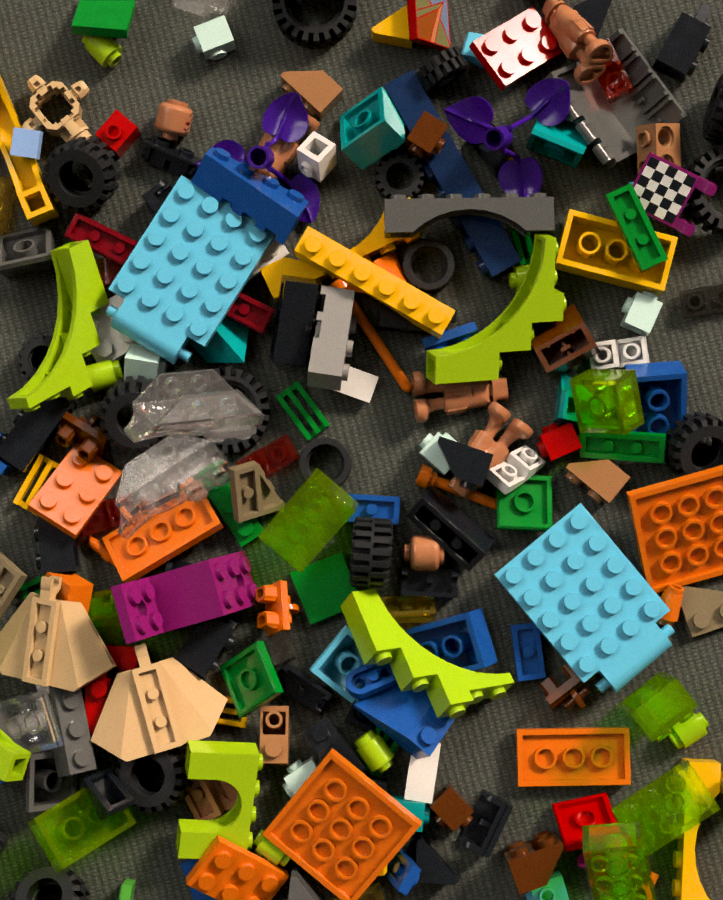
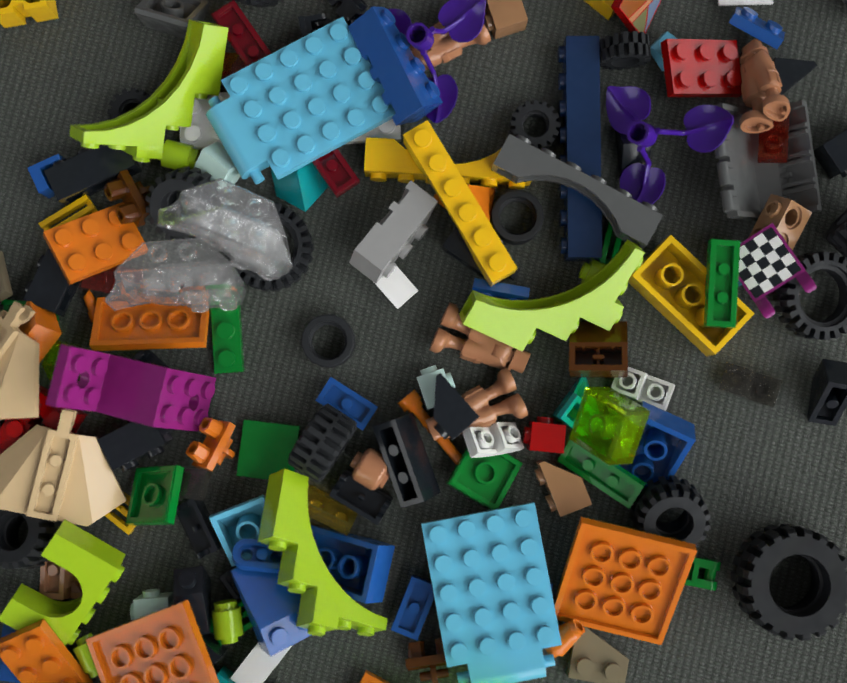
camera: 30 degrees right, 0 degrees up
(252, 492) = (248, 330): dark tan wing -> none
(274, 455) = (280, 310): clear red slope -> none
(275, 735) = (147, 557): medium nougat slope -> none
(289, 392) = (332, 260): green tile -> none
(294, 320) = (371, 199): black brick -> none
(308, 520) = (284, 382): clear neon green brick -> none
(316, 156) = (471, 66): white brick -> none
(371, 129) = (533, 69): teal slope -> none
(377, 342) = (434, 260): orange piece -> none
(427, 136) = (578, 100): reddish brown brick -> none
(558, 142) = (692, 170): teal slope -> none
(640, 312) = (683, 362): light aqua brick -> none

